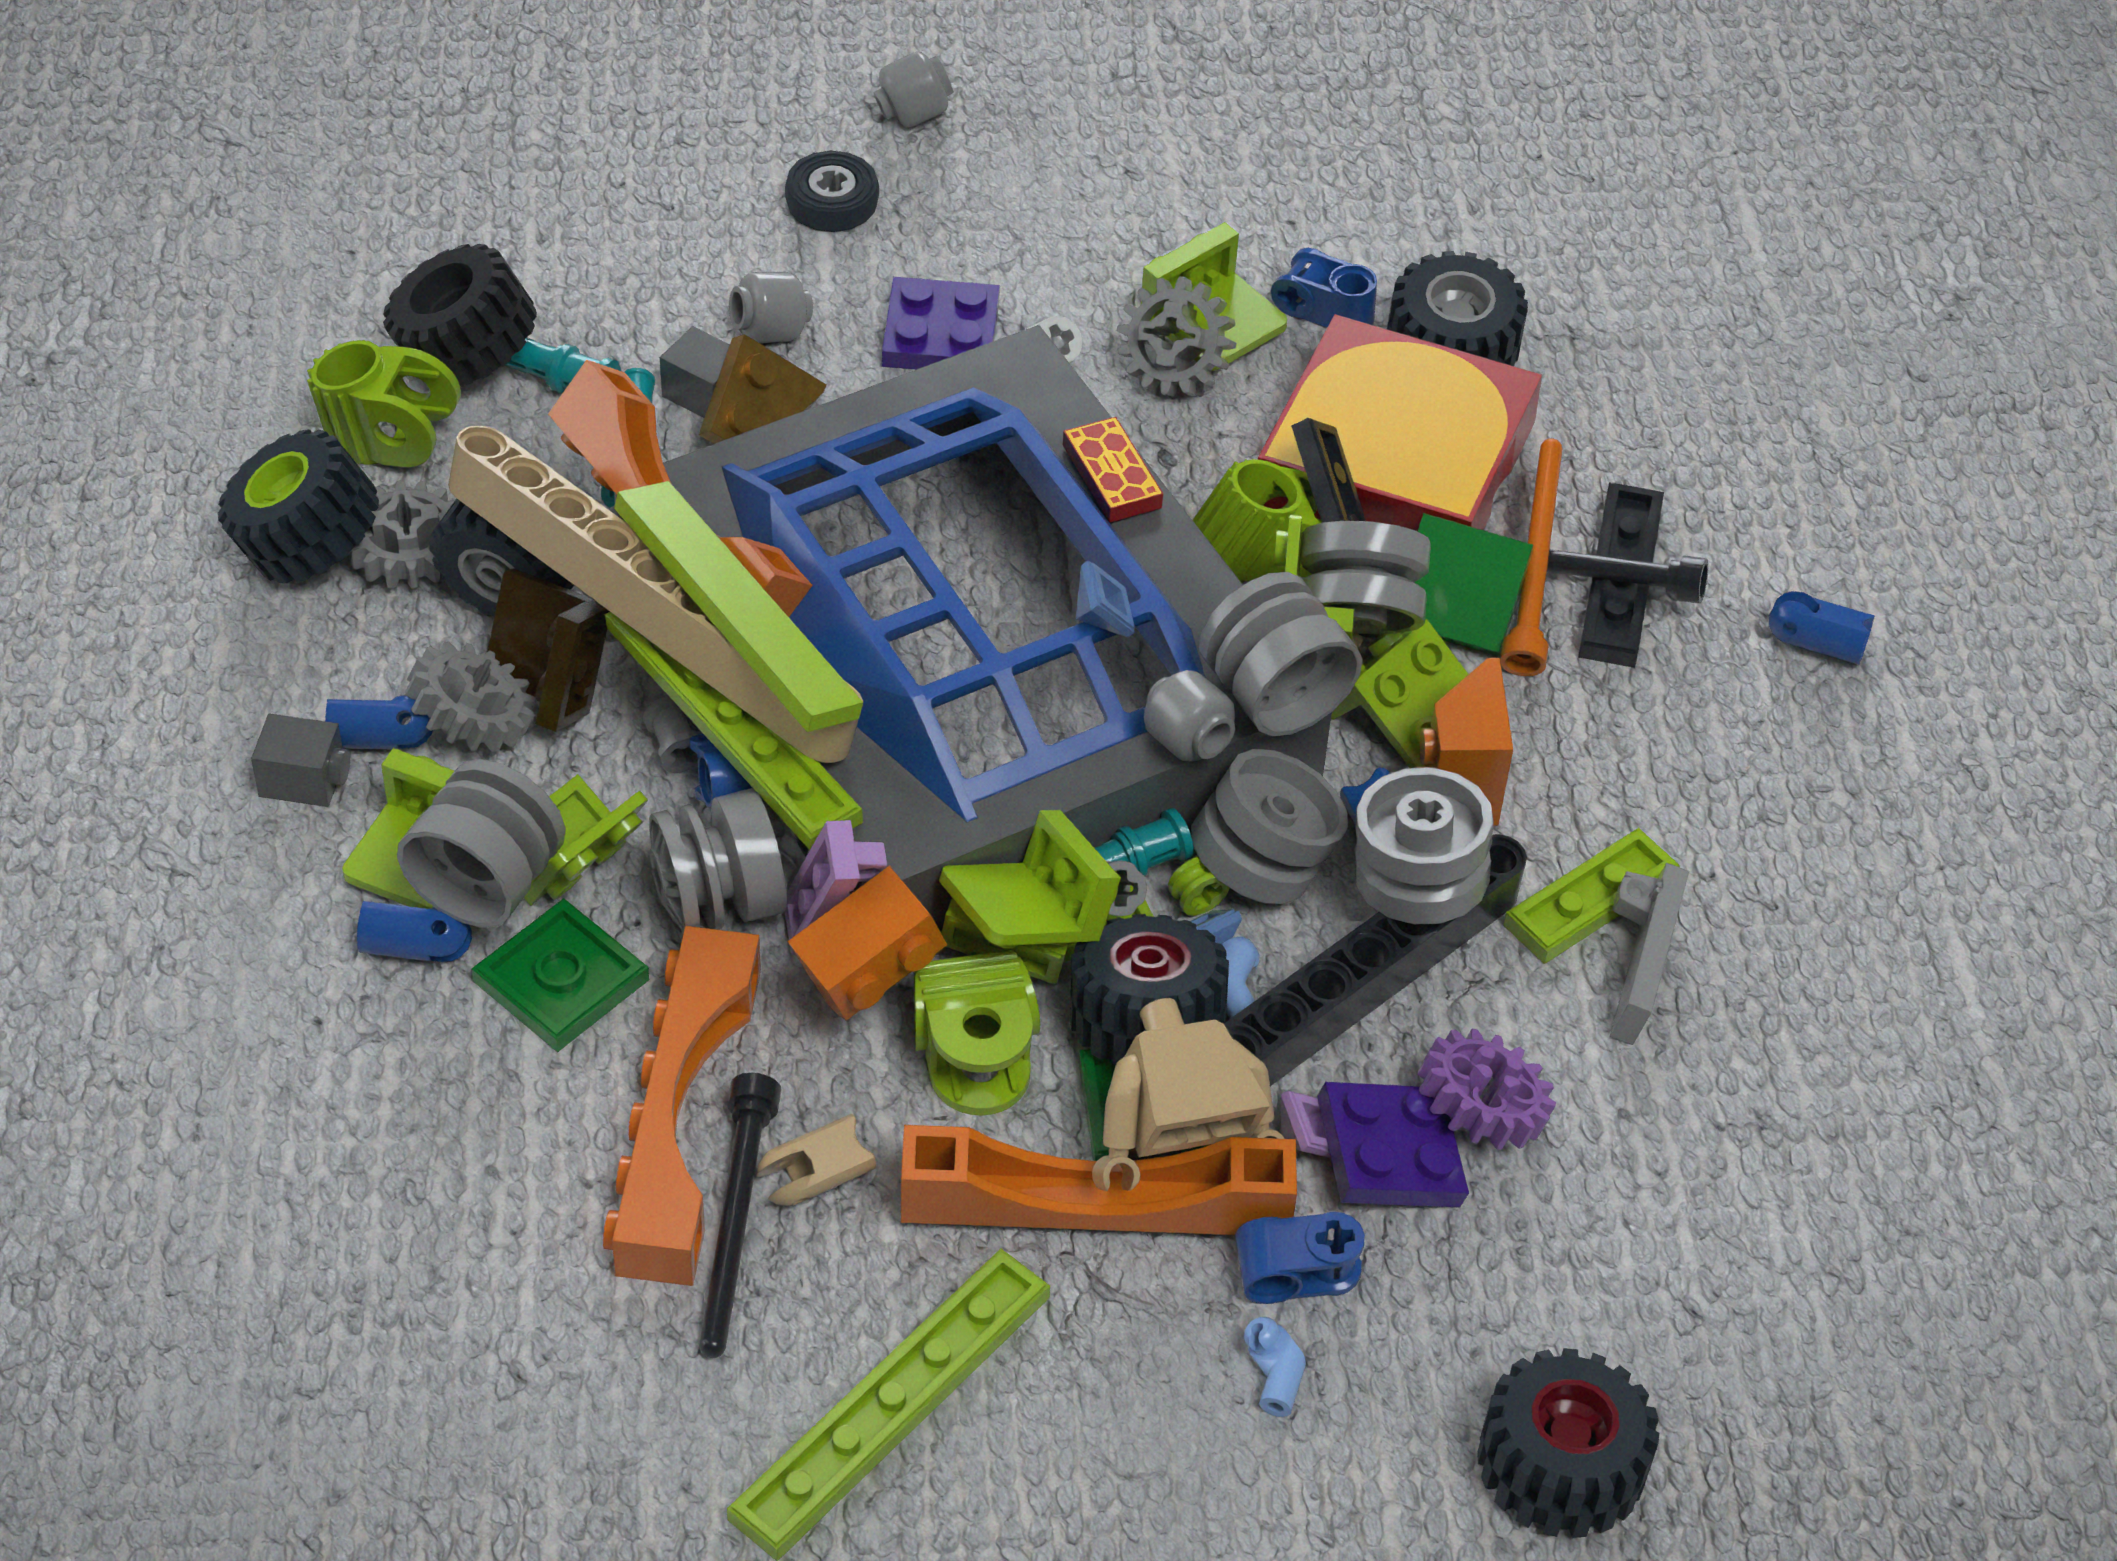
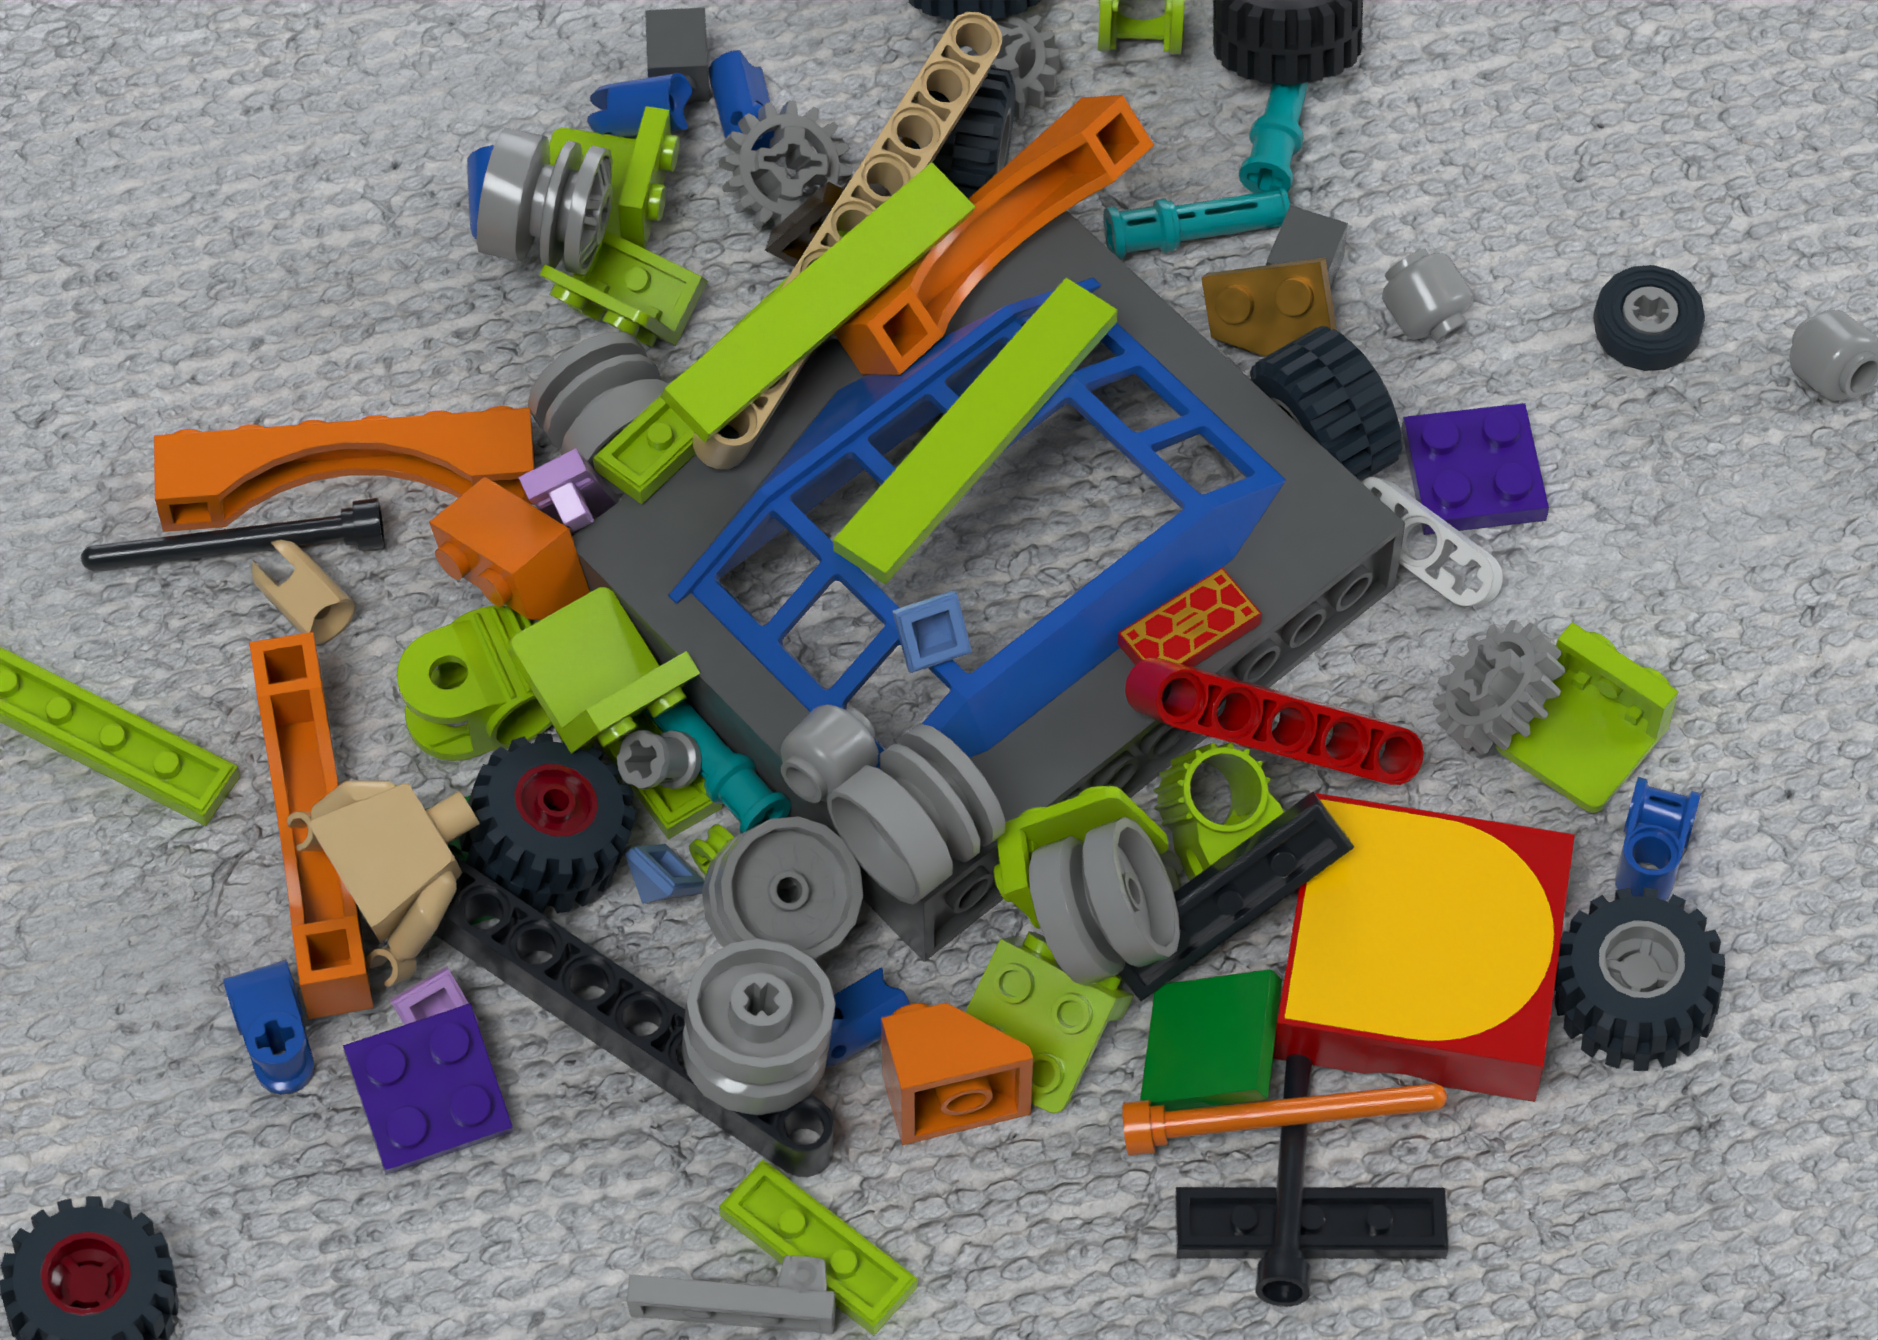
camera: 80 degrees right, 10 degrees up
(354, 787) = (625, 102): none -> blue piece
(560, 974) = (486, 336): green tile -> none
(877, 346) = (1334, 398): none -> black wheel
(899, 539) = (975, 431): none -> lime tile
(1199, 453) = (1250, 716): none -> red beam
(1242, 957) = (615, 906): light blue arm -> none
(1280, 1362) = (158, 1033): light blue arm -> none
(1514, 1104) = (533, 1192): medium lavender gear -> none

